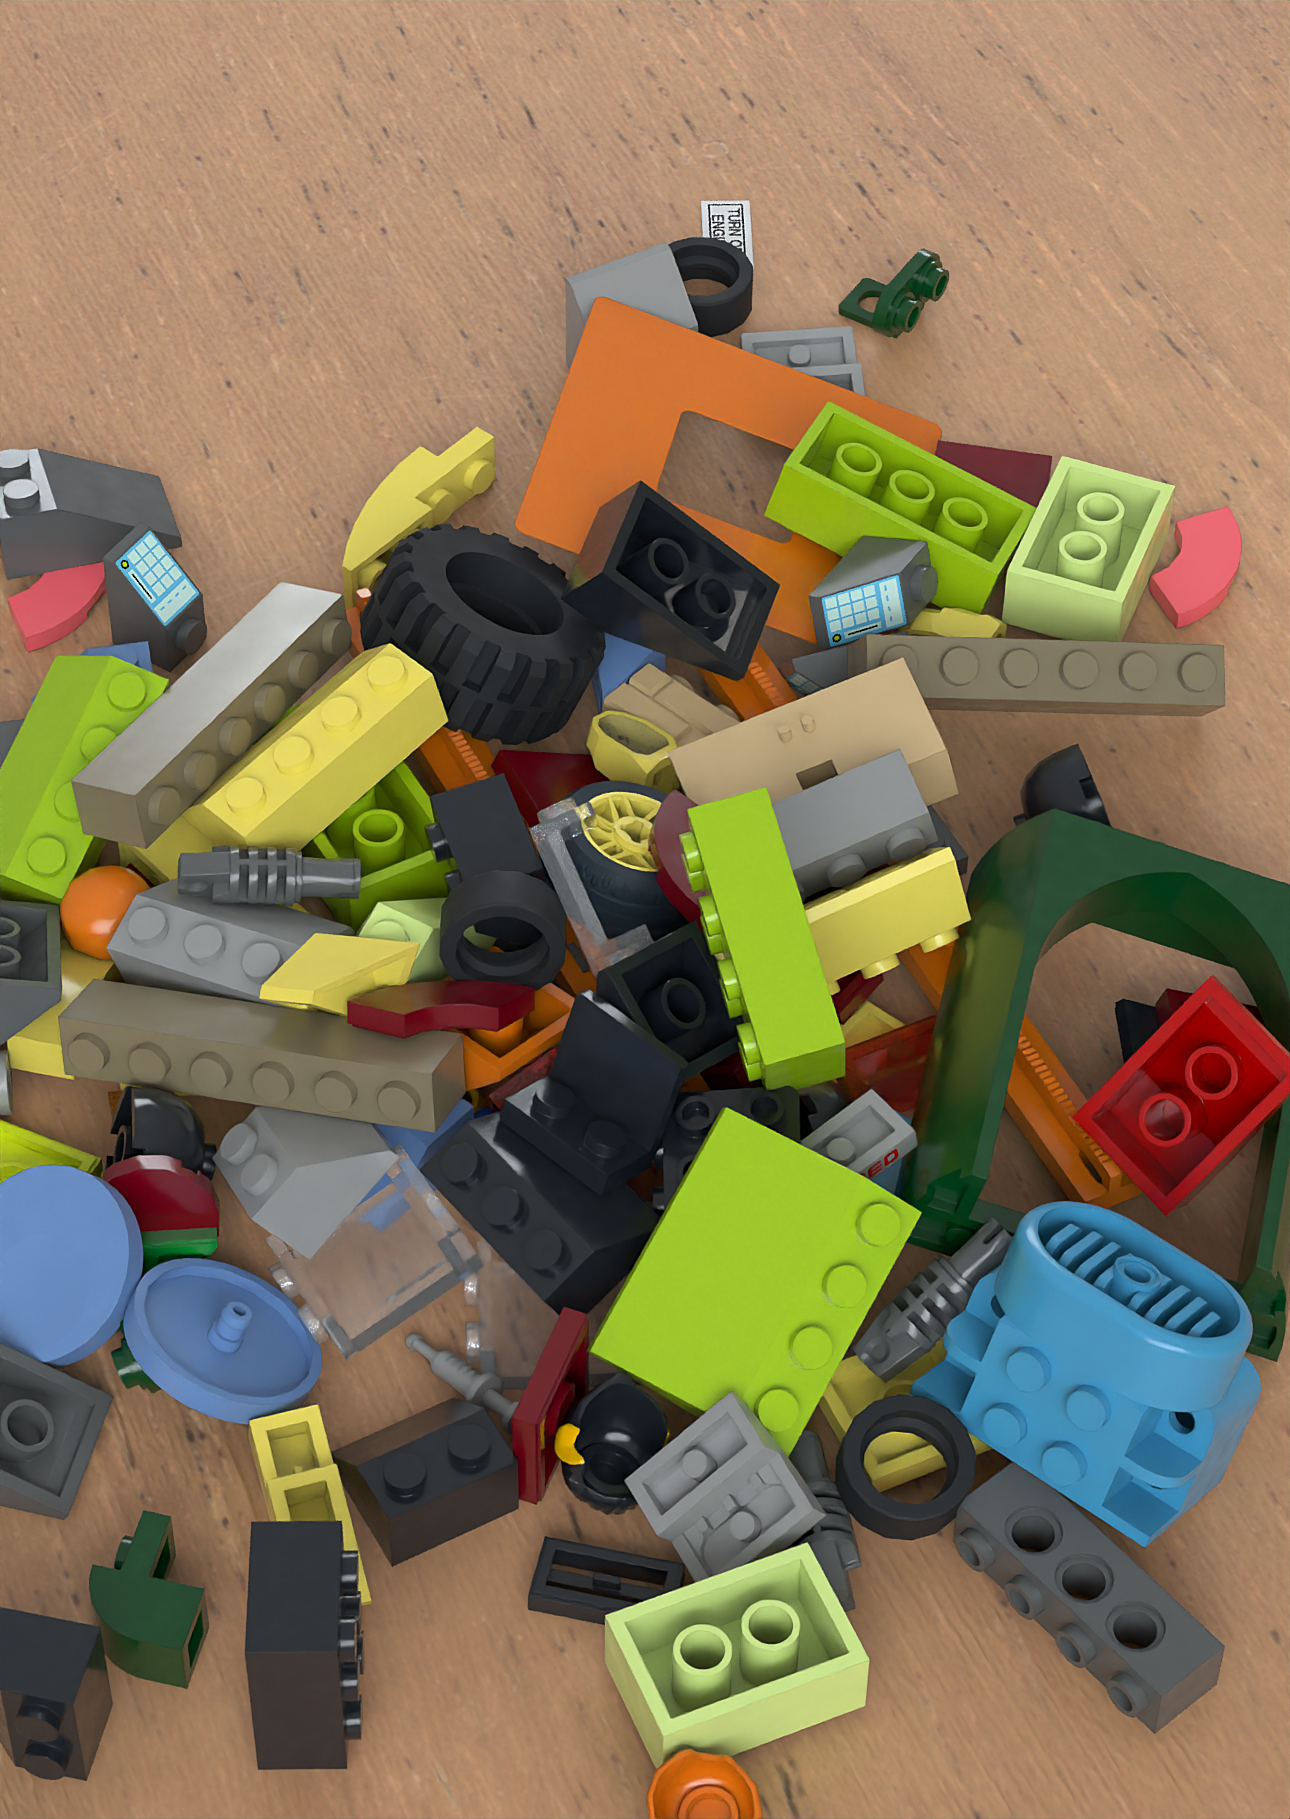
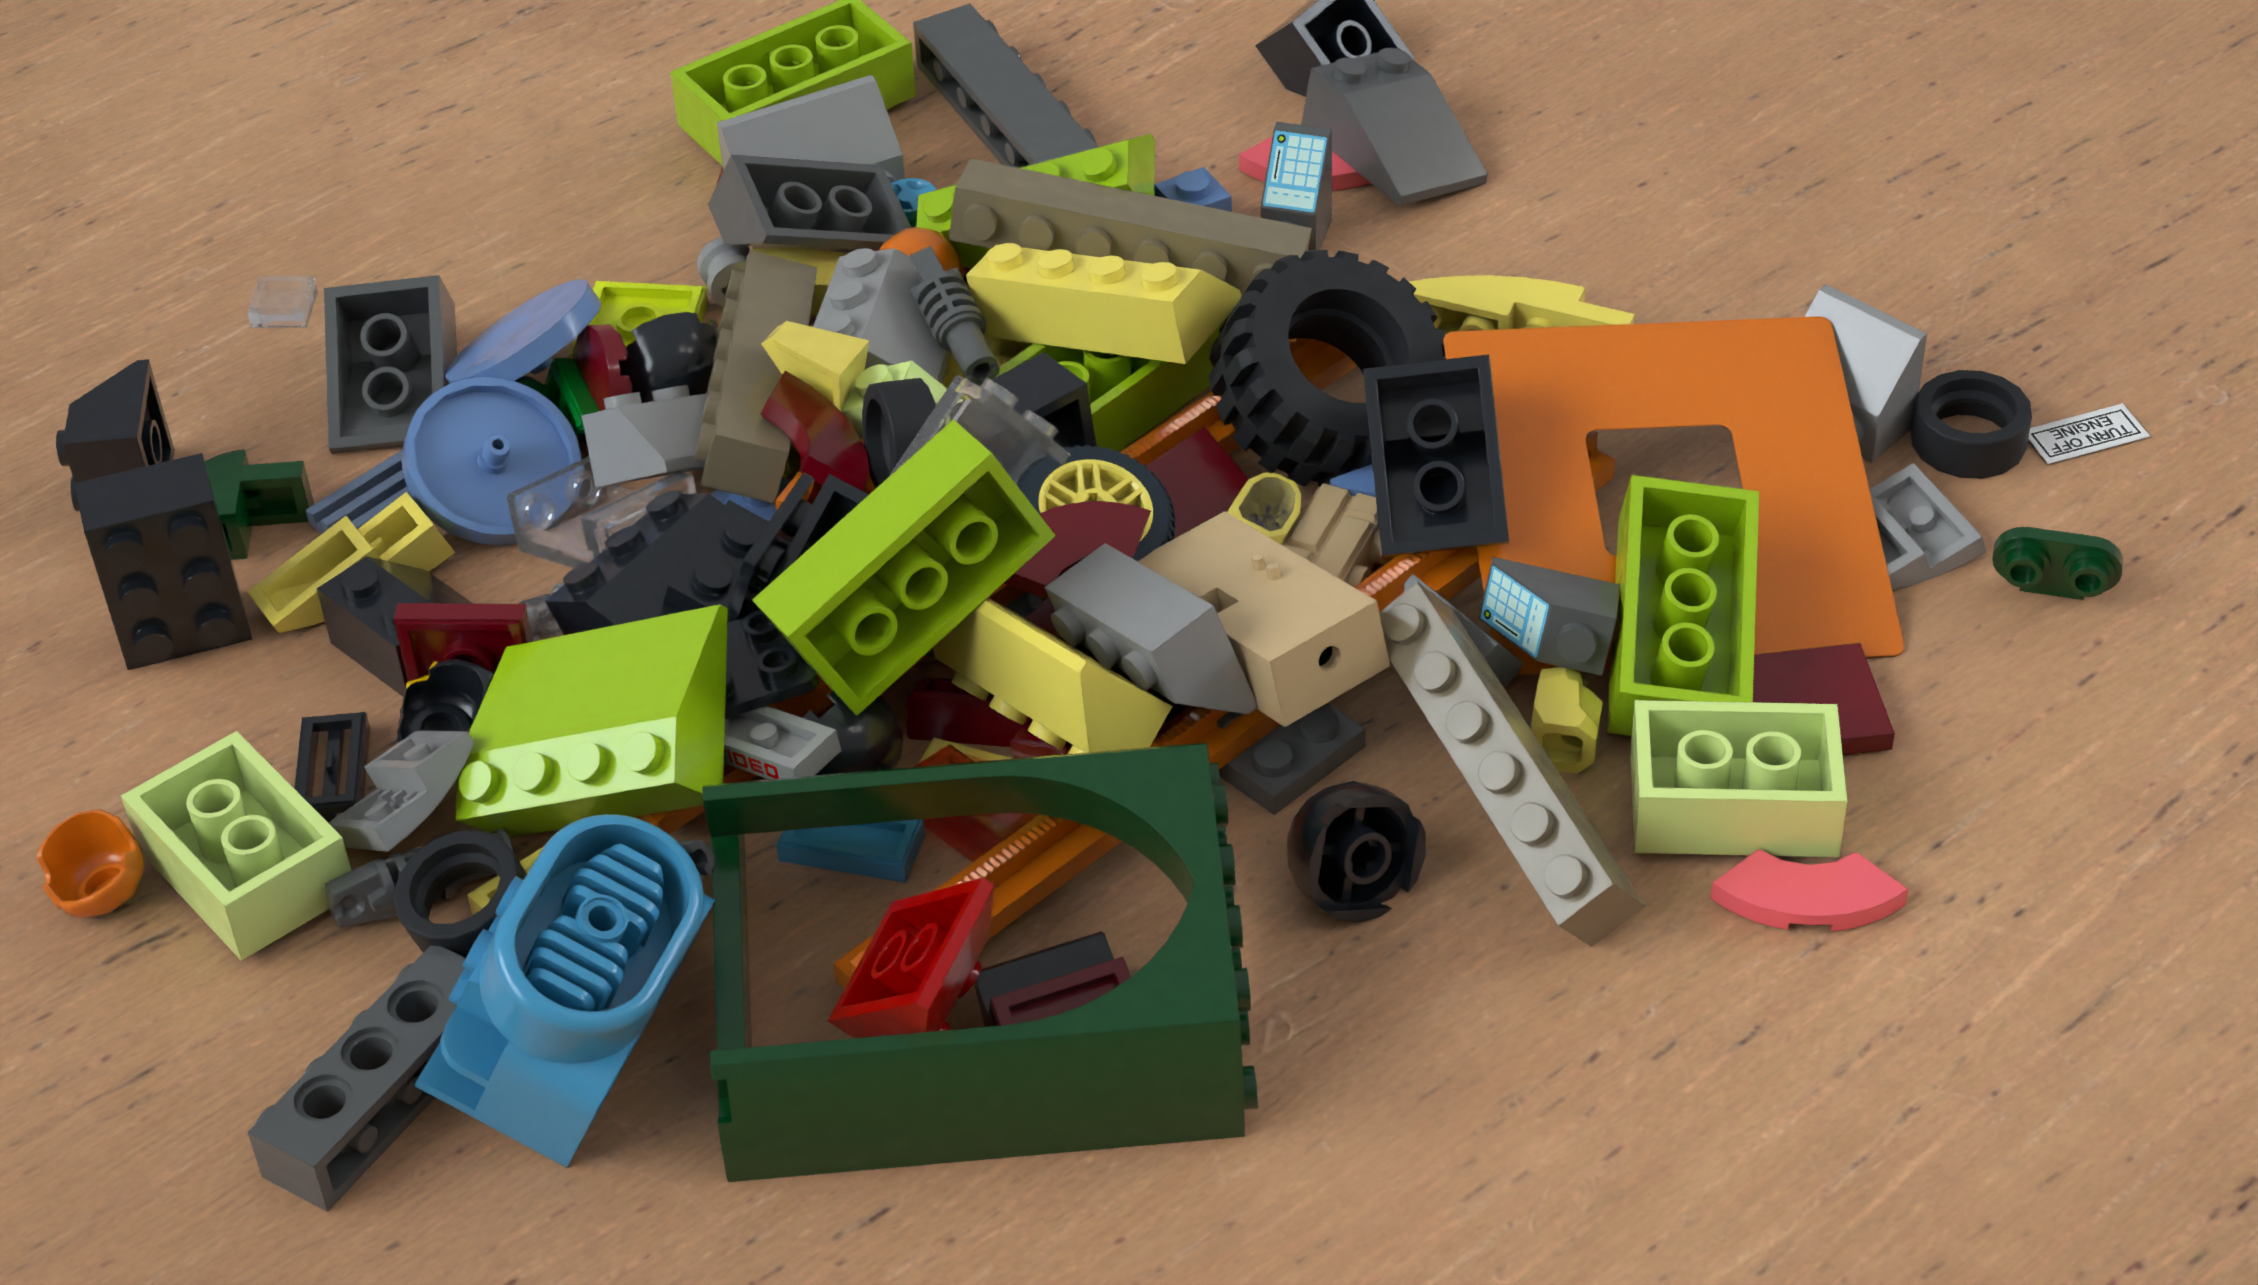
camera: 75 degrees right, 5 degrees down
(167, 1440) = (361, 497): none -> sand blue tile

